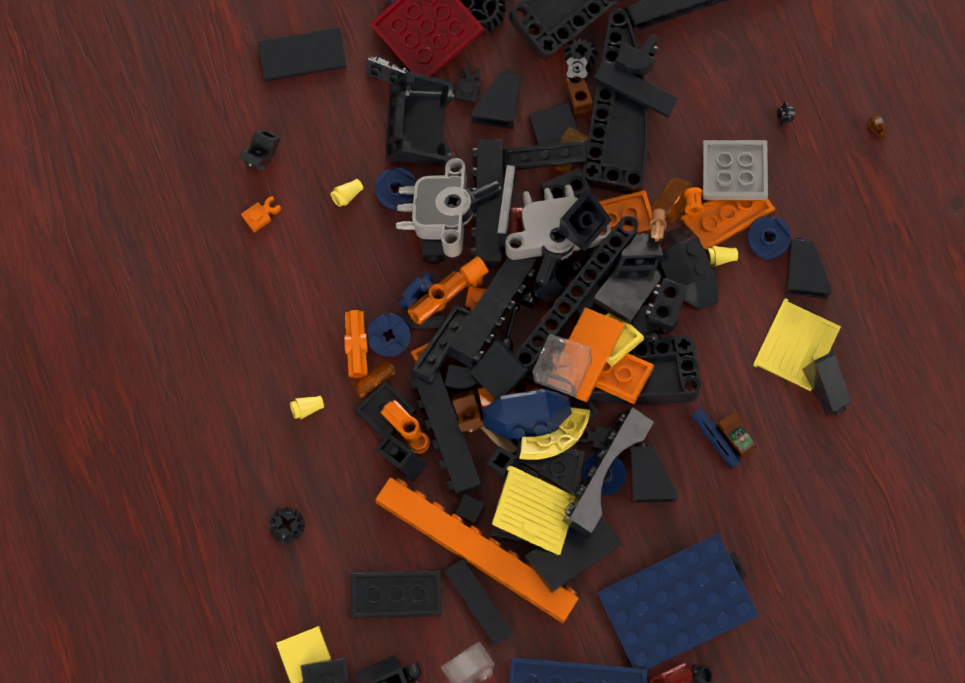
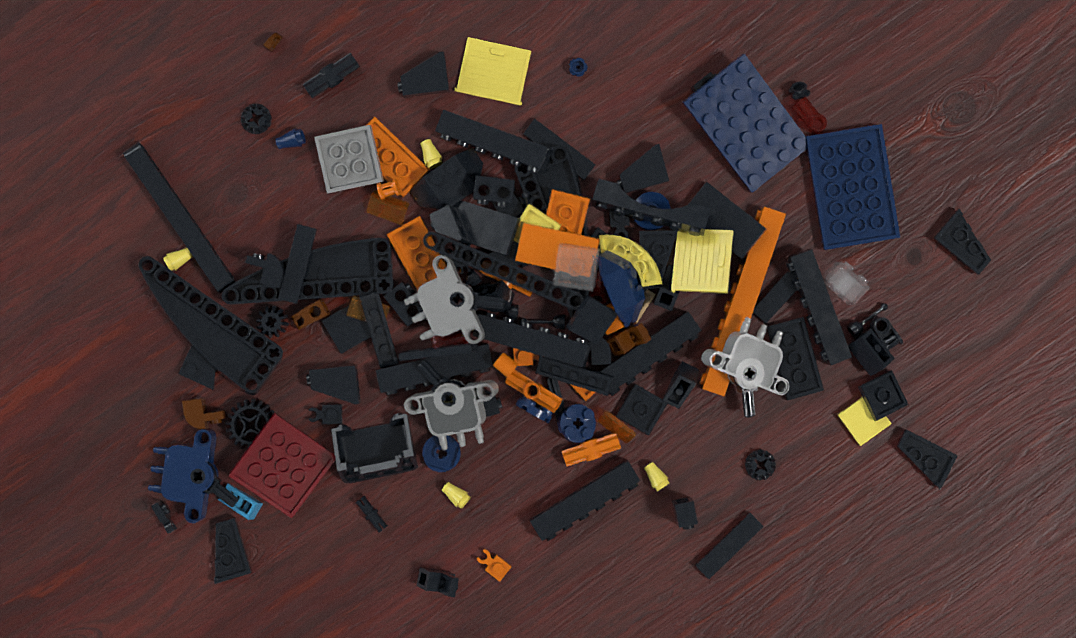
camera: 100 degrees left, 15 degrees up
(206, 467) = (729, 545): none -> black tile
(258, 423) = (685, 513): none -> black brick
(301, 54) = (335, 571): black tile -> none
(302, 322) = (584, 500): none -> black brick
(351, 103) = (371, 514): none -> black pin
(381, 70) = (332, 499): black hinge -> none
(401, 421) = (651, 393): orange piece -> none
(412, 544) = (750, 363): none -> piece
(420, 445) = (663, 373): orange plate -> none
(447, 633) = (819, 307): none -> black brick
(469, 509) = (708, 315): black tile -> none
(573, 62) = (284, 321): plate -> none
(584, 221) = (441, 278): black slope -> none
(658, 224) = (420, 215): medium nougat axle -> none
(701, 417) = (590, 129): dark blue pin -> none
(710, 380) = (542, 135): none -> black tile
(720, 320) = (494, 141): none -> black brick
(736, 435) = (588, 106): leg -> none
(768, 226) = (414, 116): dark blue plate -> none
(769, 120) = (293, 138): none -> dark blue cone
(782, 429) = (577, 62): none -> dark blue plate
(785, 113) = (282, 126): black plate -> none
(793, 97) = (264, 121): none -> black gear
(828, 175) = (331, 75): none -> black piece
(828, 384) = (526, 37): black slope -> none

